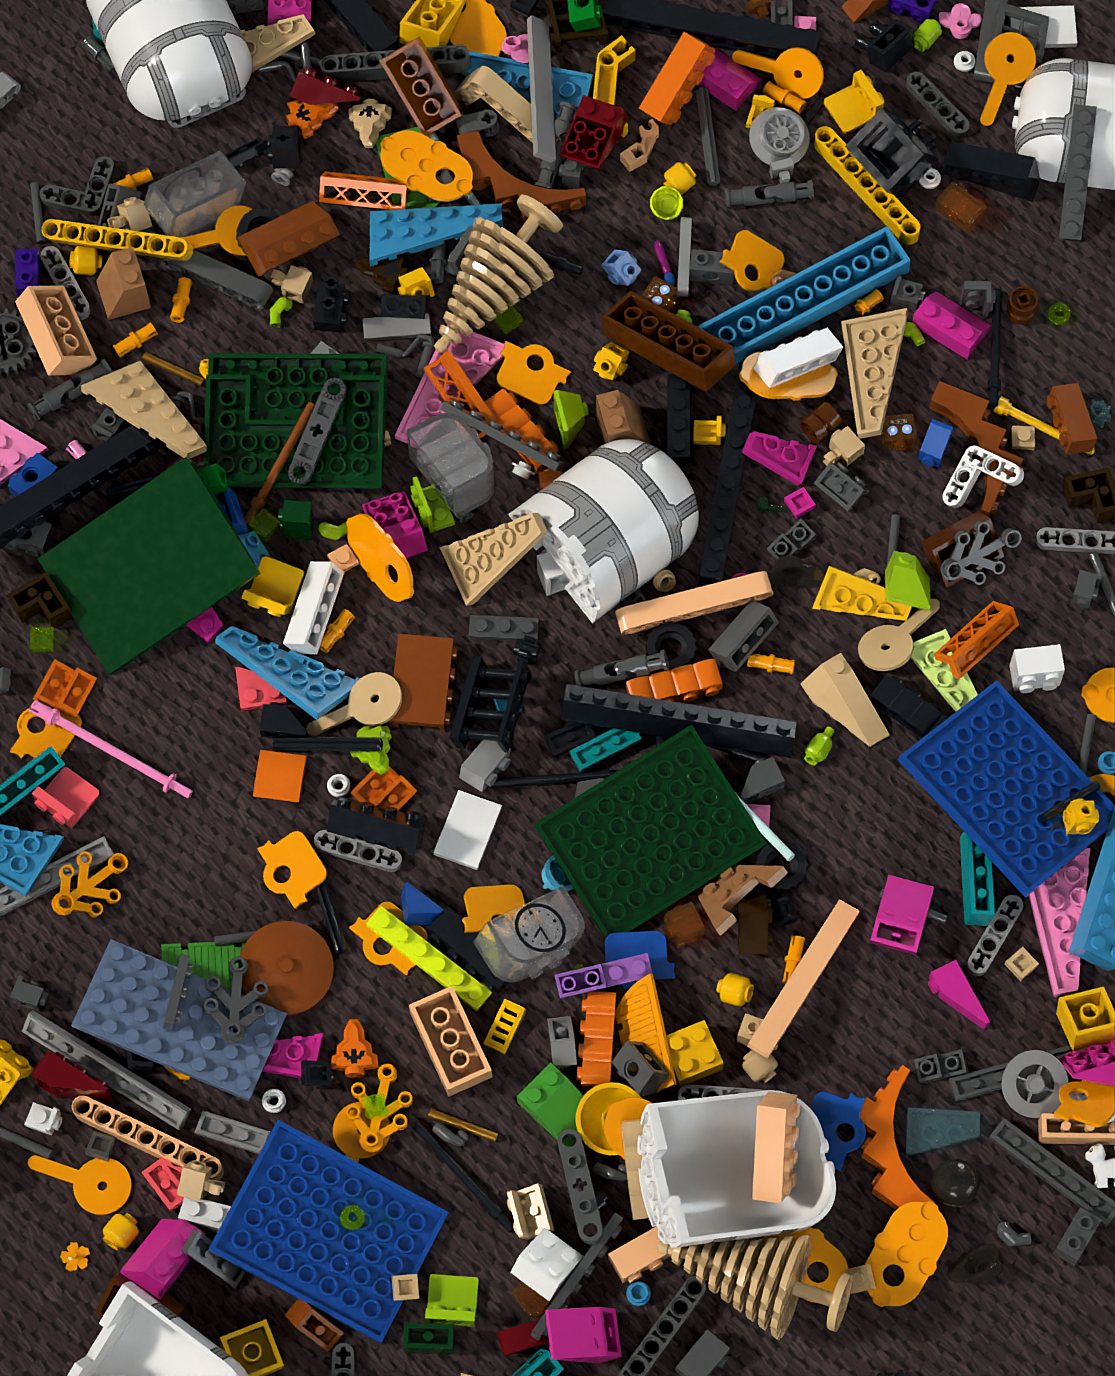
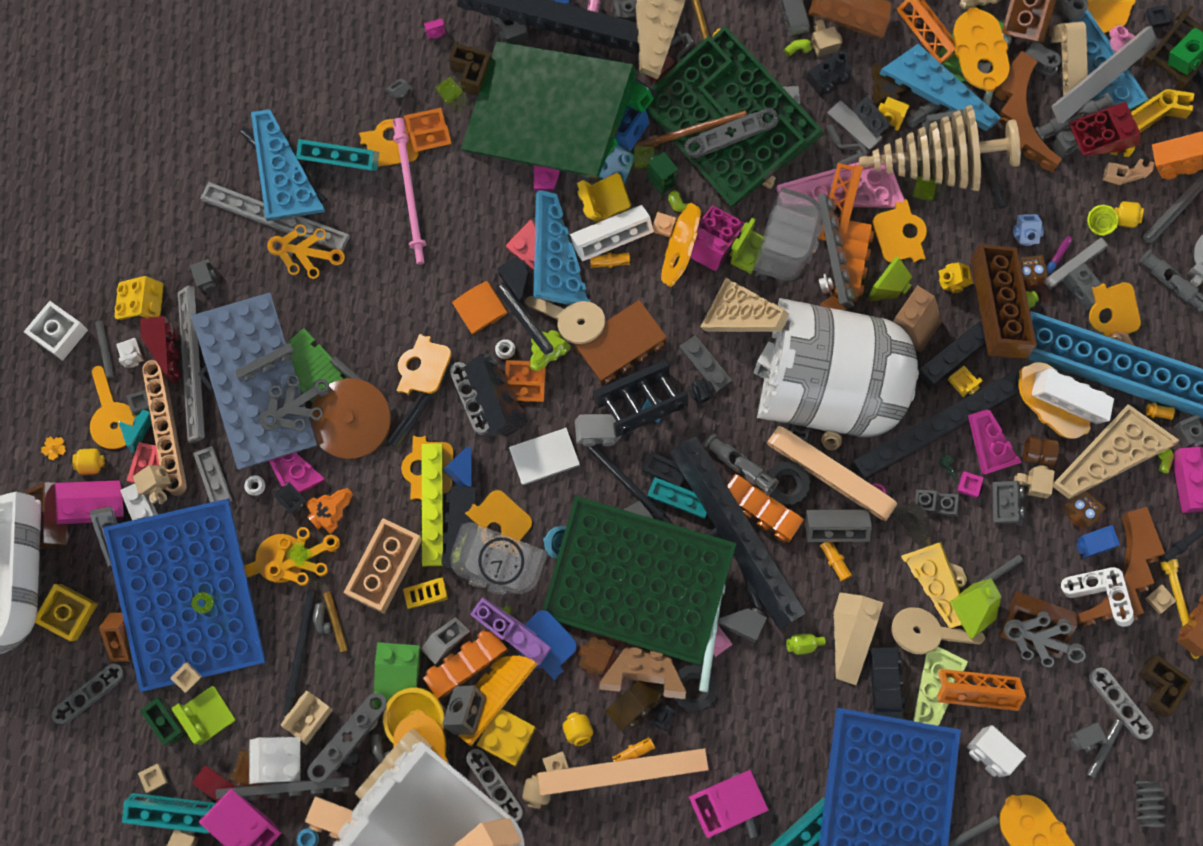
camera: 50 degrees right, 5 degrees up
(66, 797) = (354, 190): coral bracket -> none
(128, 1171) = (137, 432): none -> teal slope

